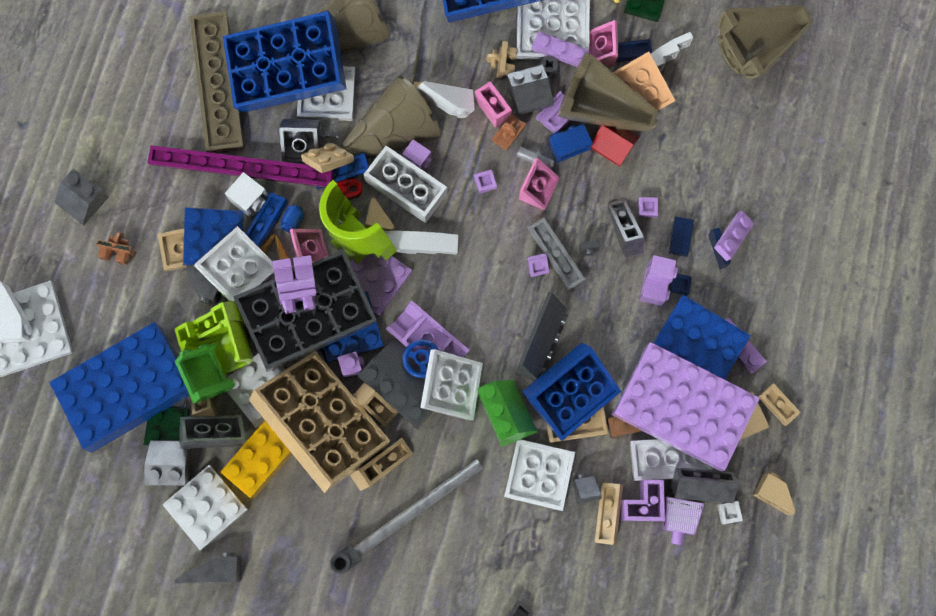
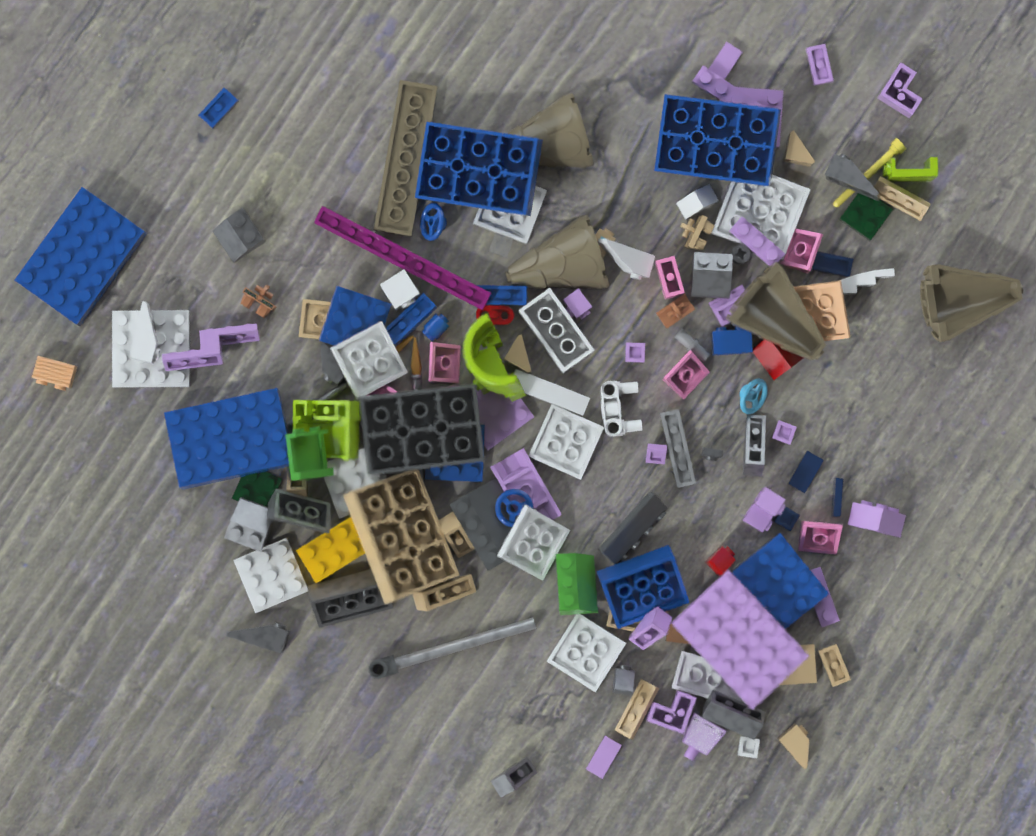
camera: 20 degrees right, 10 degrees up
(29, 92) = (218, 108): none -> blue plate
(79, 306) = (210, 347): none -> lavender bracket
(262, 126) = (437, 222): none -> blue piece
(286, 504) = (346, 598): none -> flat silver slope
(298, 137) = (468, 249): flat silver slope -> none
(298, 289) = (416, 410): lavender hips -> none
(327, 157) = (489, 280): tan plate -> none
(351, 364) = (446, 490): lavender brick -> none
(450, 282) = (566, 441): none -> white plate
(482, 238) = (612, 408): none -> white piece
(493, 35) = (697, 201): none -> white slope
(593, 573) = (603, 757): none -> lavender tile
(594, 428) = (651, 628): none -> lavender slope
(604, 183) = (751, 394): none -> medium azure piece
(635, 342) = (721, 560): none -> red slope
(718, 289) = (819, 537): none -> bright pink slope
(734, 235) = (855, 490): lavender plate -> none
(764, 253) = (877, 518): none -> lavender brick

